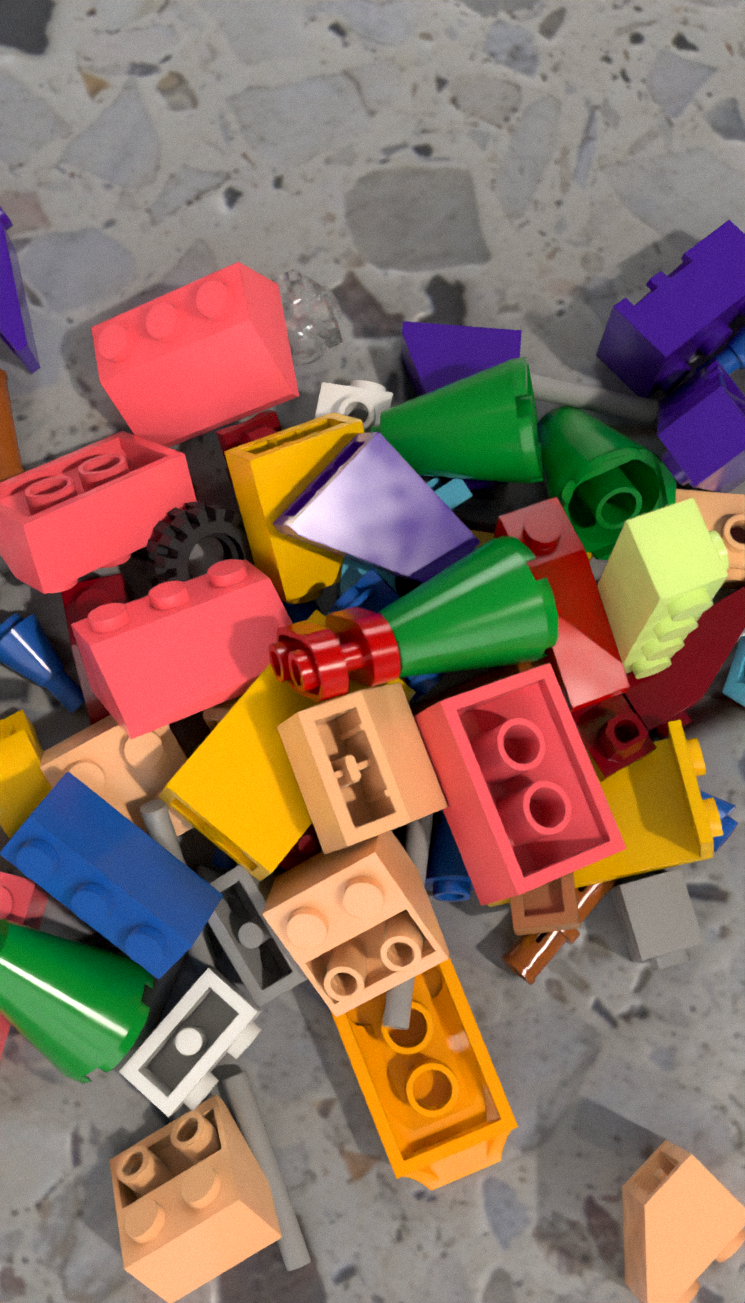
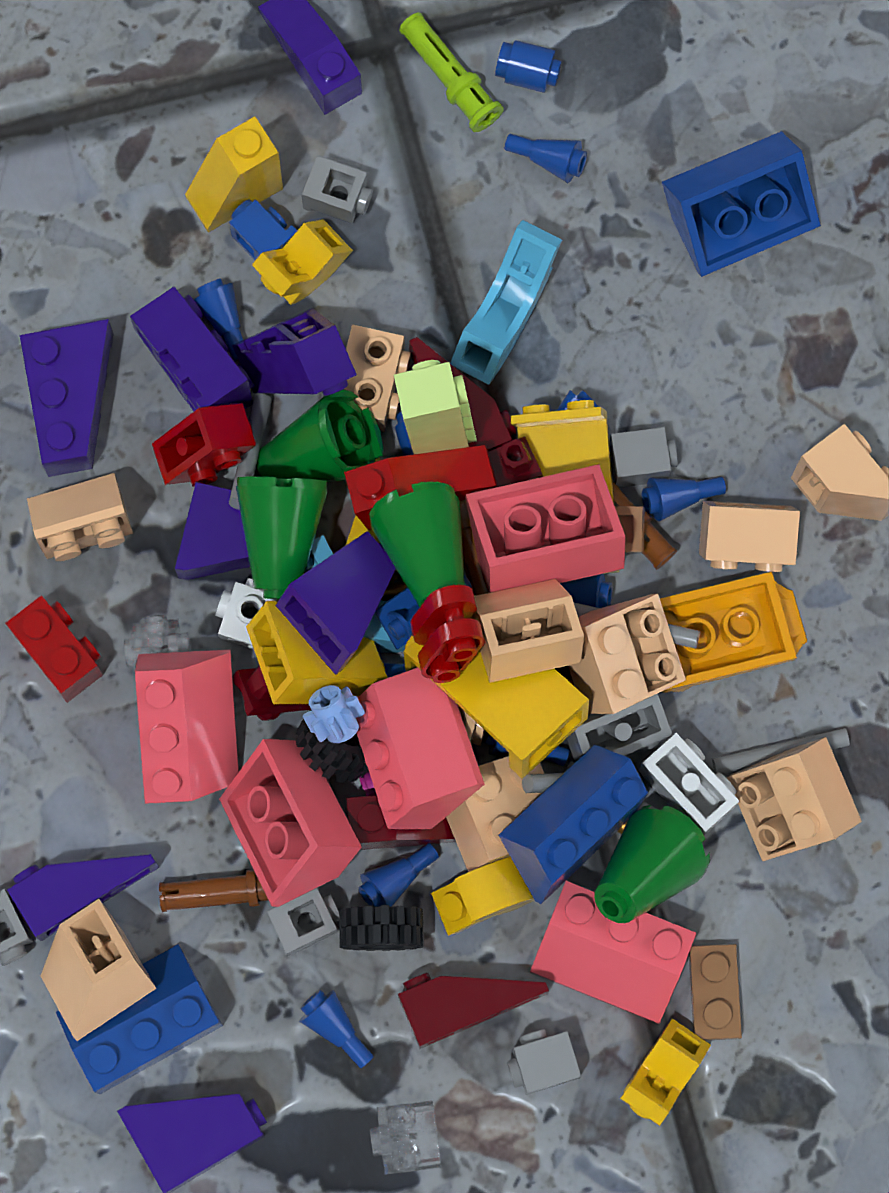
camera: 85 degrees left, 0 degrees up
(217, 529) = (333, 714): none -> light blue gear
(283, 201) = (54, 649): none -> red brick
(454, 202) = (79, 518): none -> light nougat slope
(568, 1088) = (749, 534): none -> light nougat brick
(574, 331) = (204, 444): none -> red brick
(609, 968) = (668, 496): none -> blue cone
(615, 165) = (66, 391): none -> dark purple wedge

